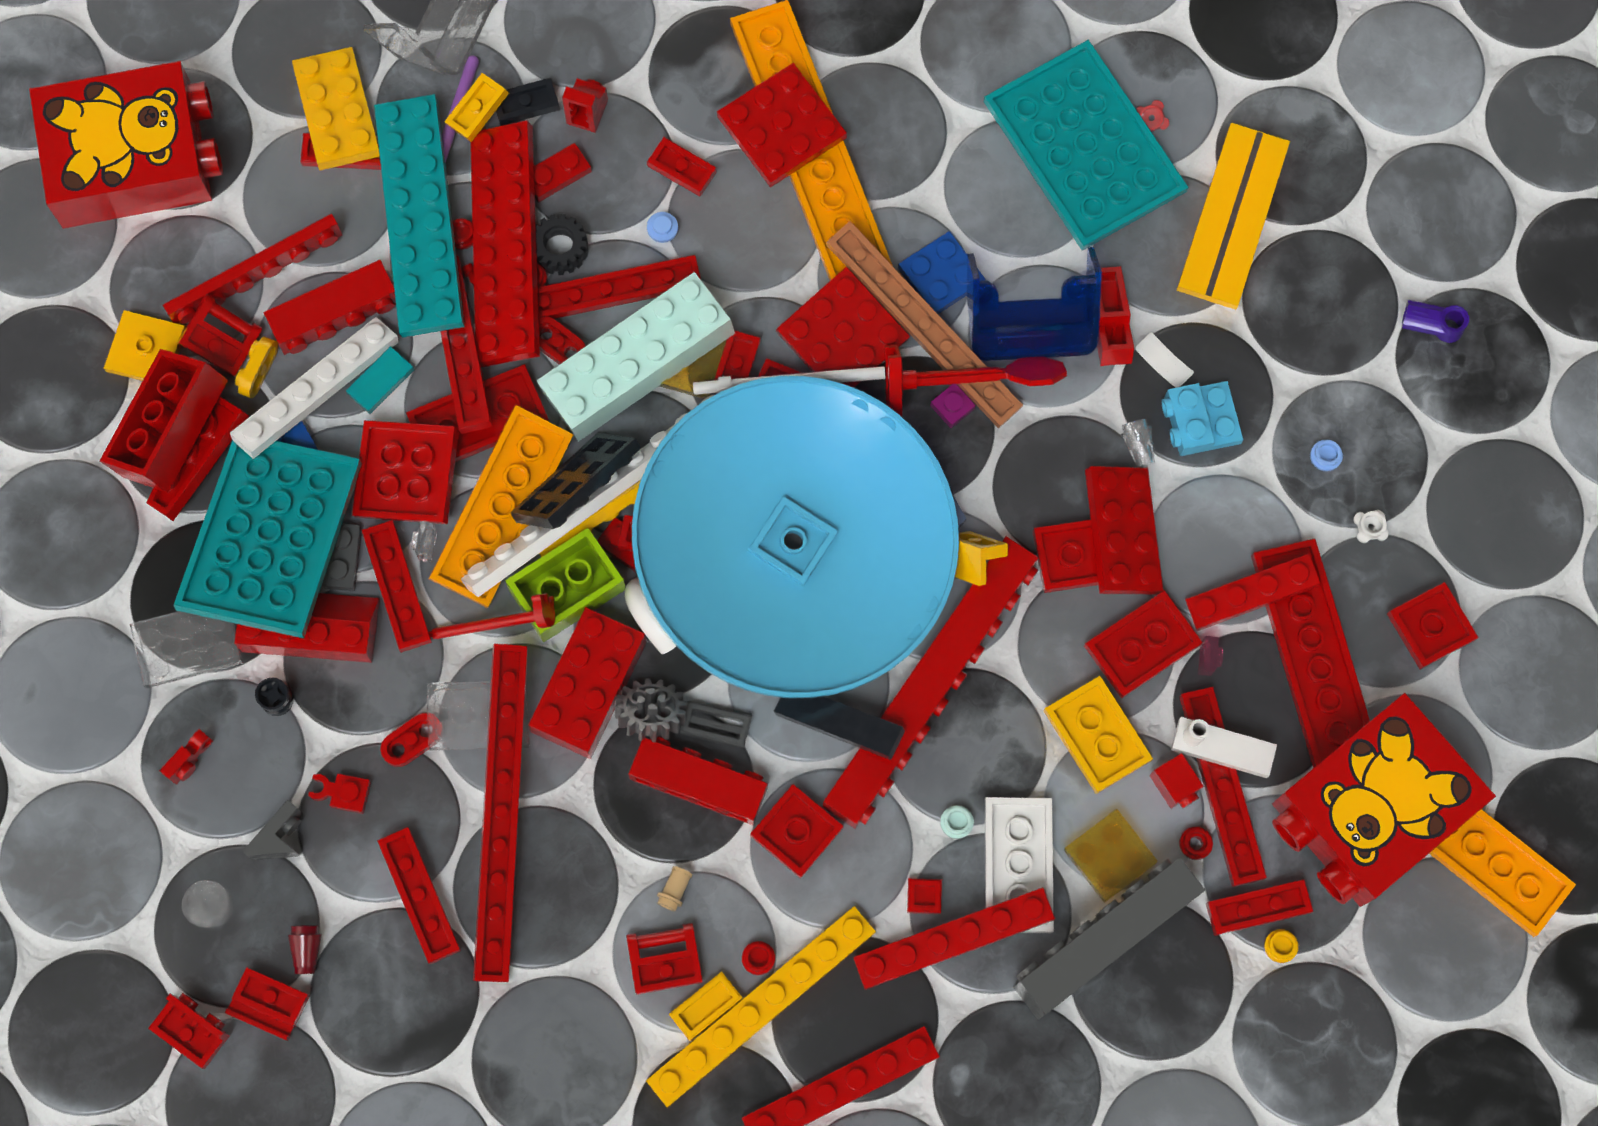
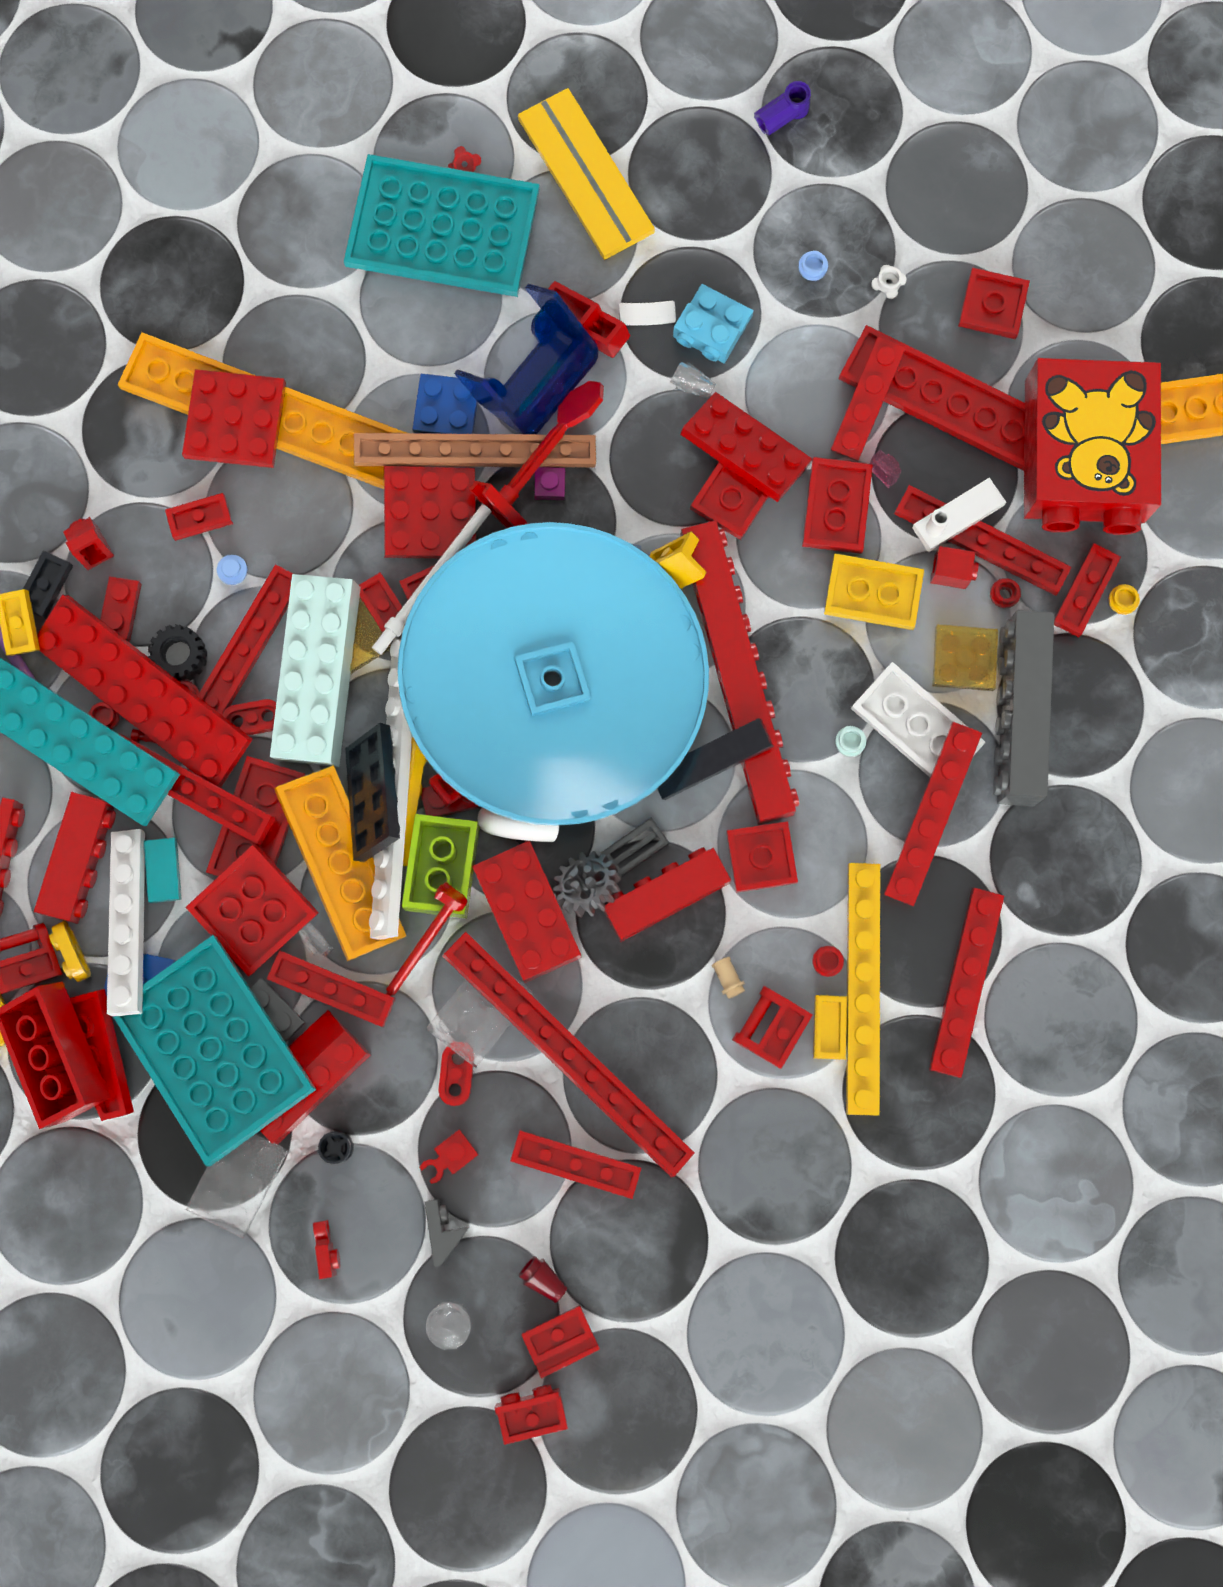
camera: 45 degrees left, 5 degrees up
(924, 896) = (882, 809): red tile -> none

